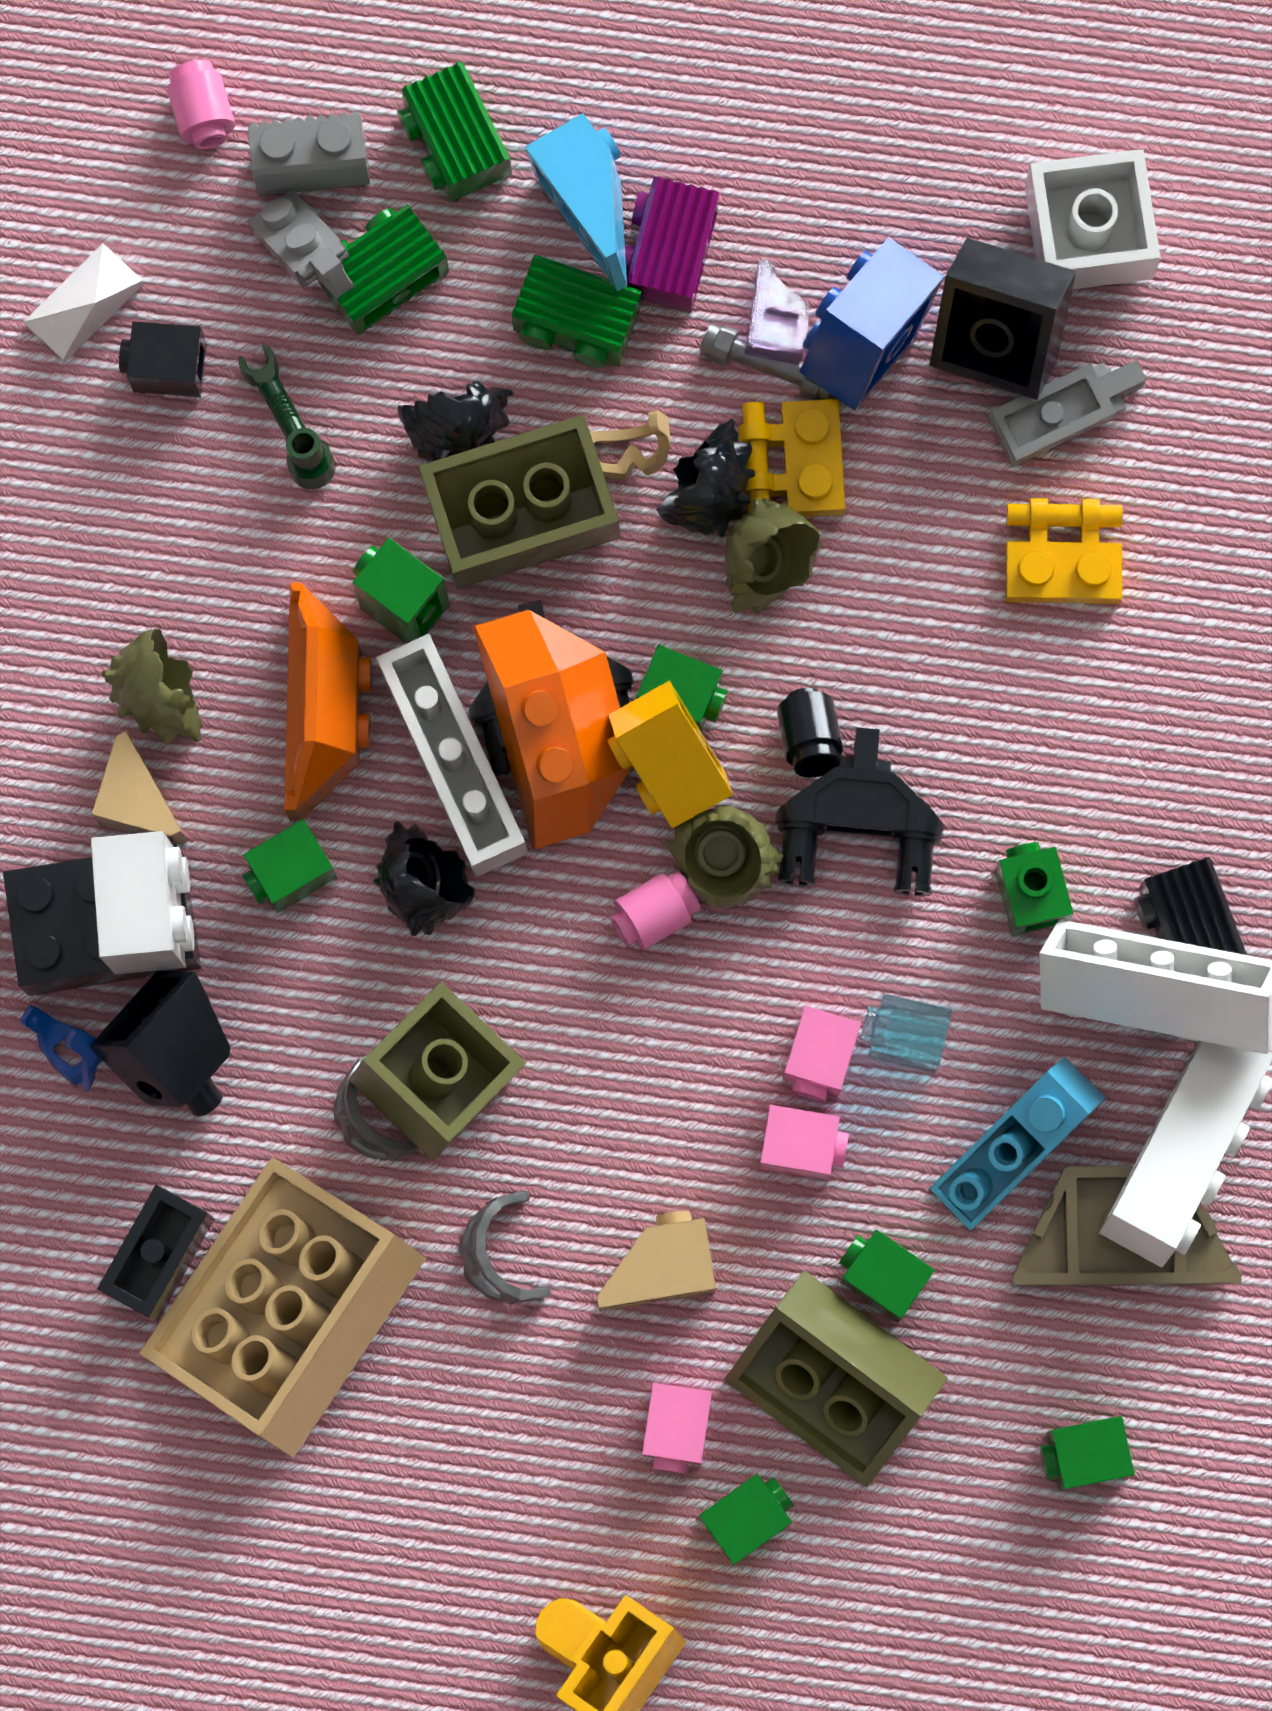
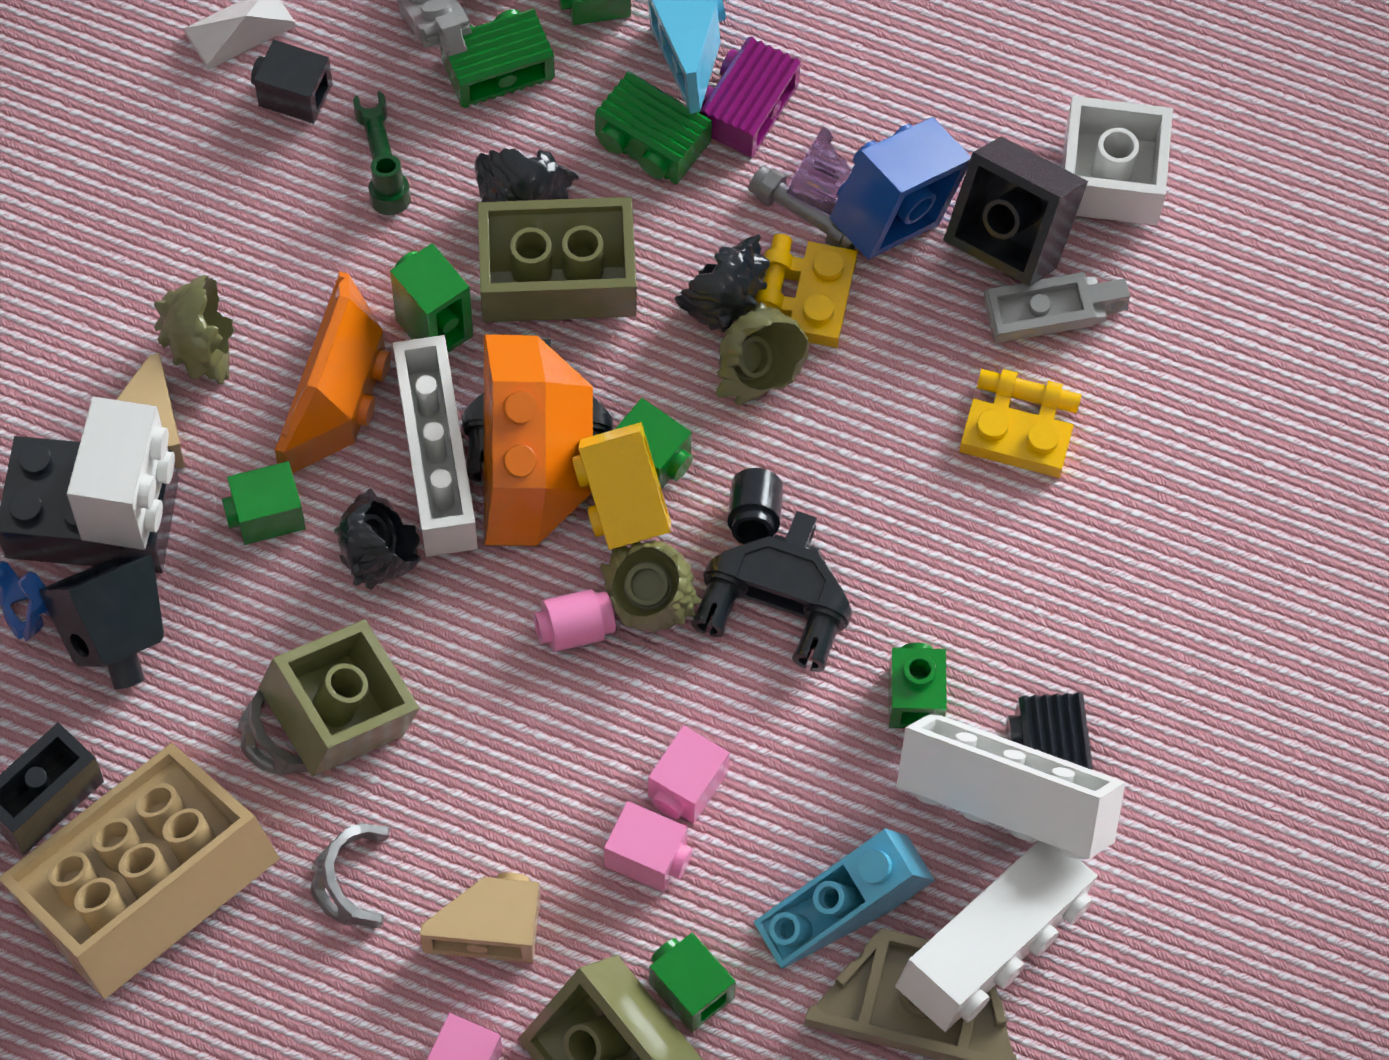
camera: 10 degrees right, 15 degrees down
(657, 425) = (667, 256): tan helmet -> none
(906, 1032) = (770, 778): clear light blue brick -> none

